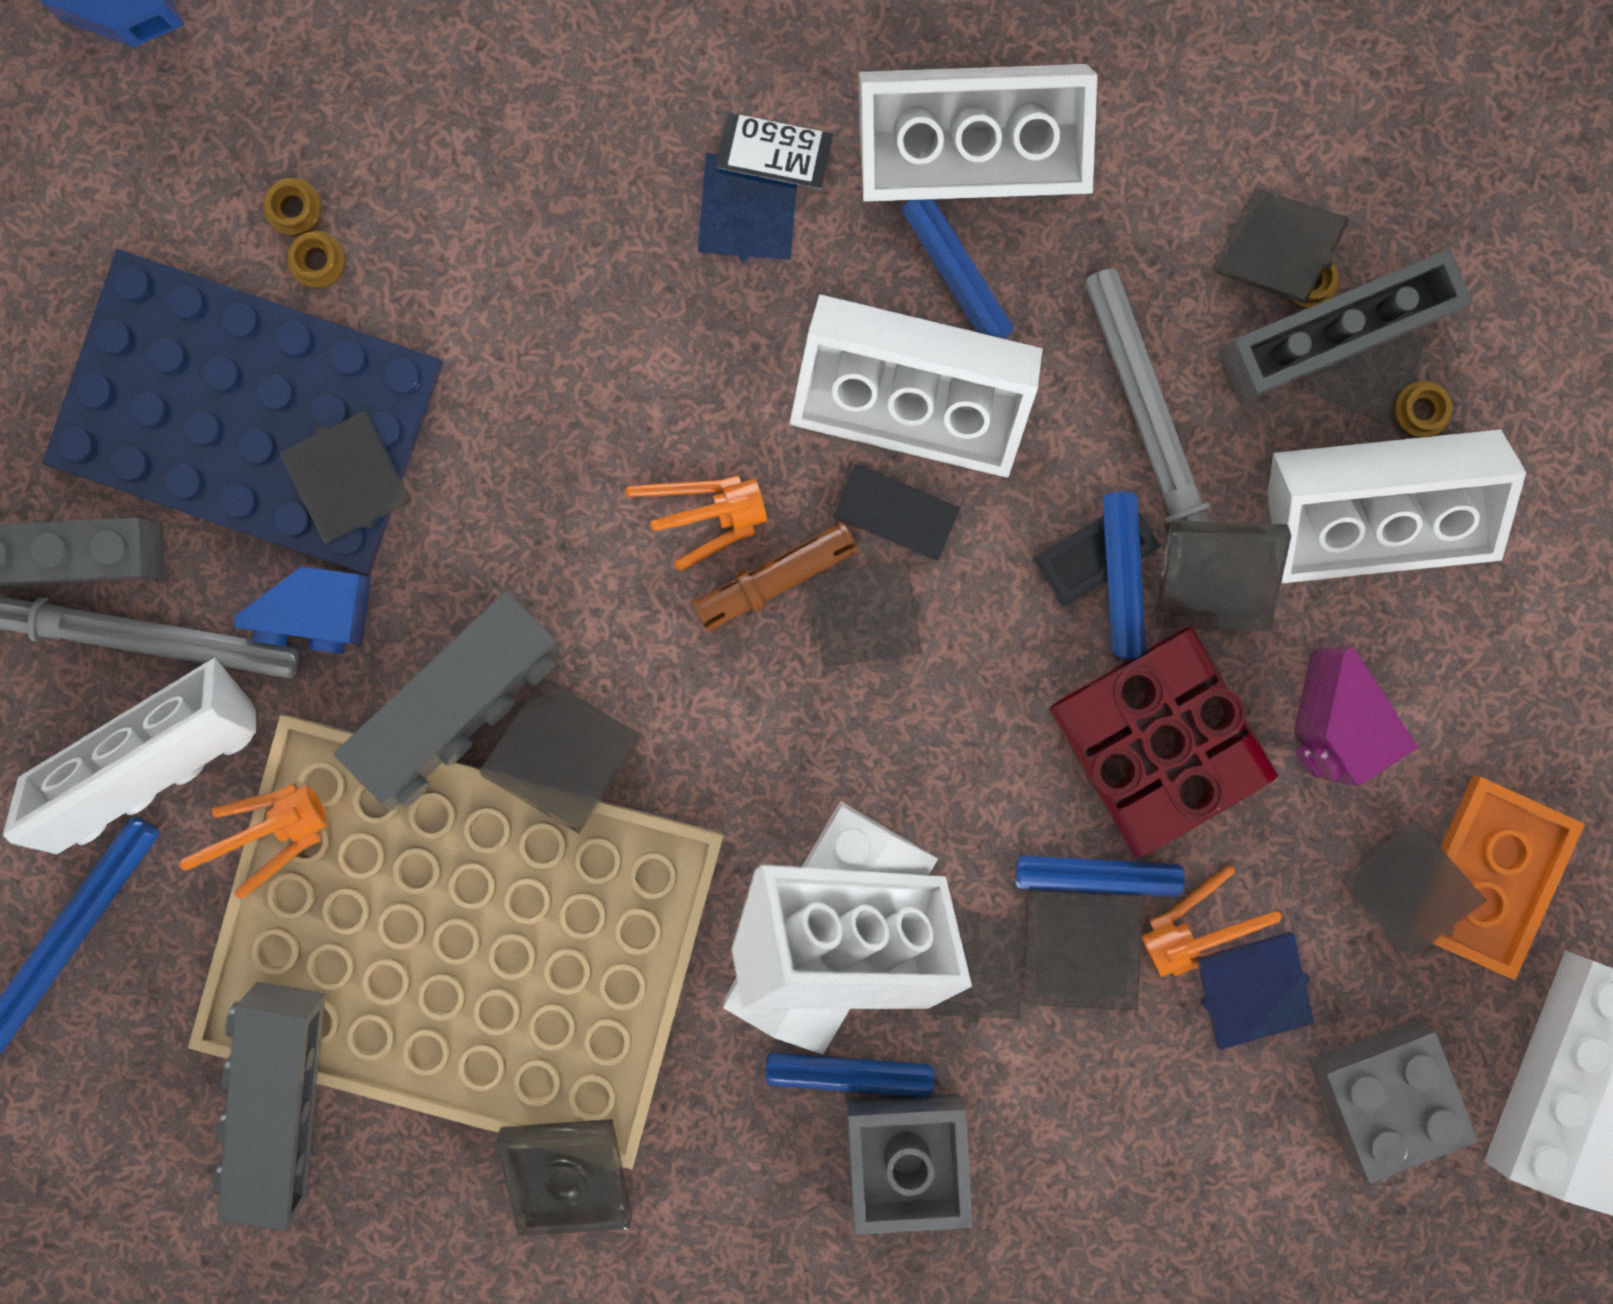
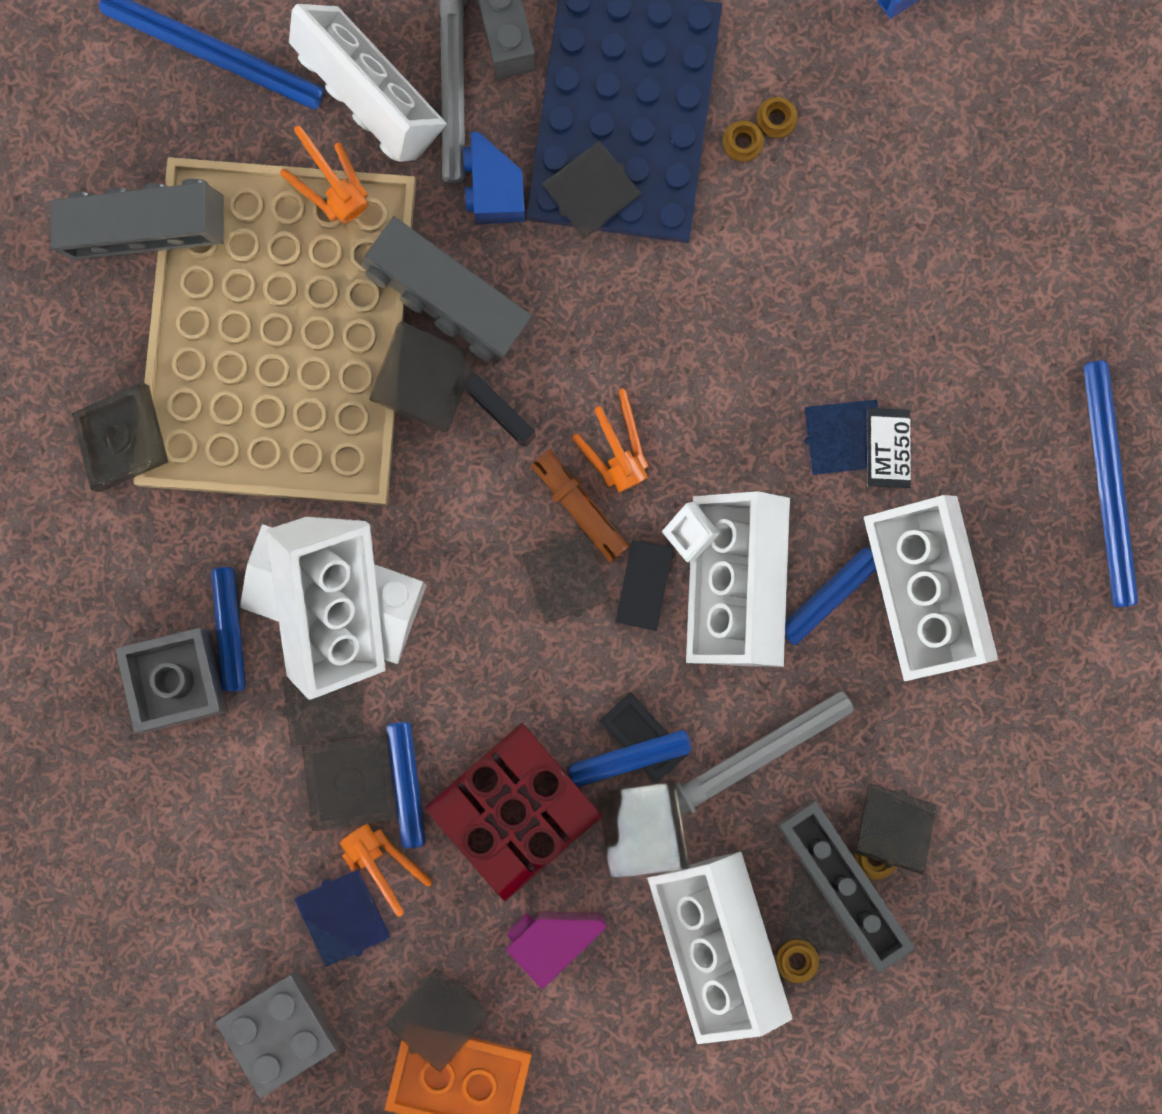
camera: 80 degrees right, 5 degrees down
(625, 660) = (499, 410): none -> black tile
(838, 436) = (690, 532): none -> white tile

